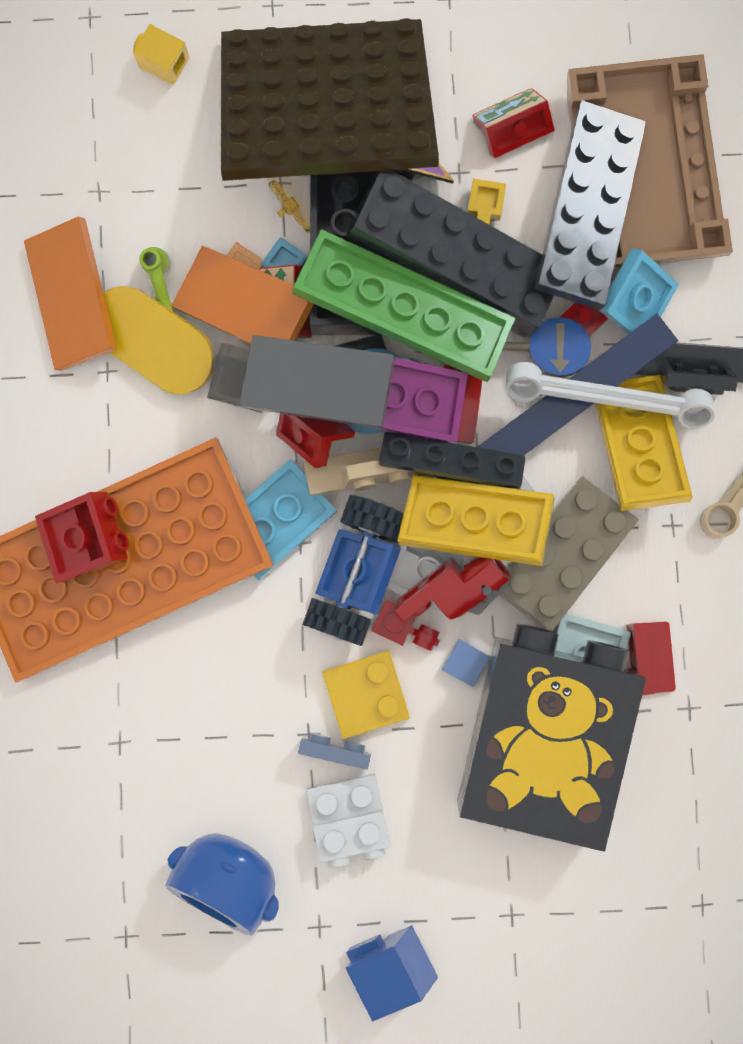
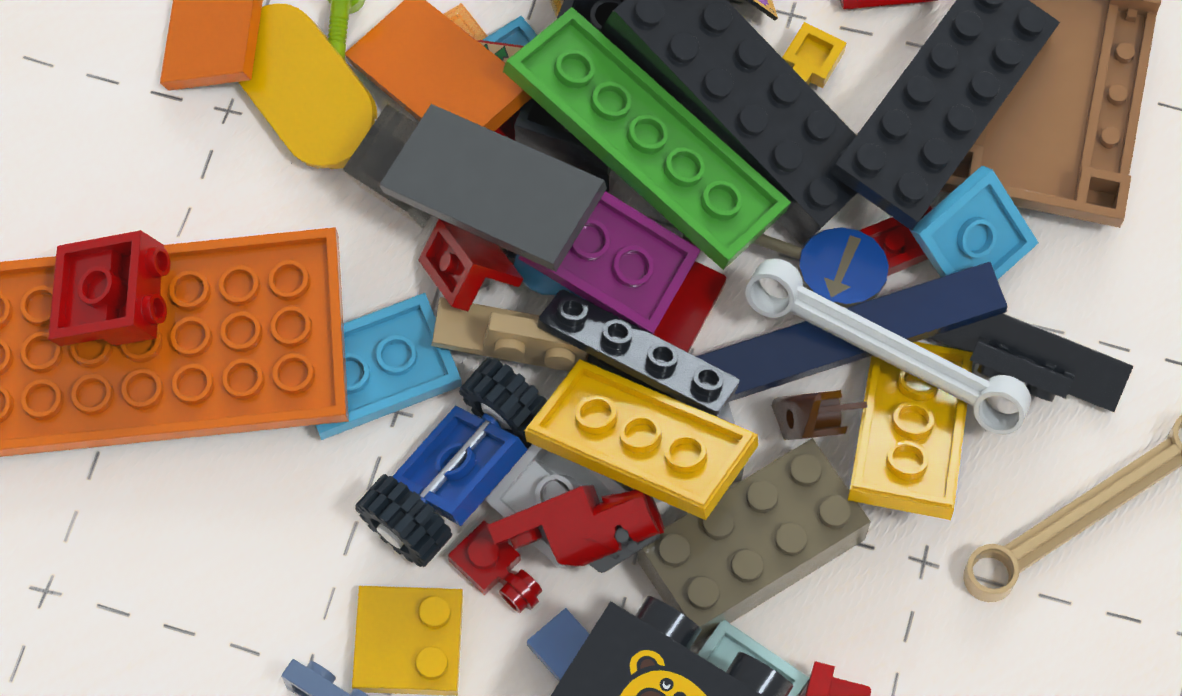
camera: 20 degrees right, 15 degrees down
(573, 457) = (811, 414): none -> reddish brown piece

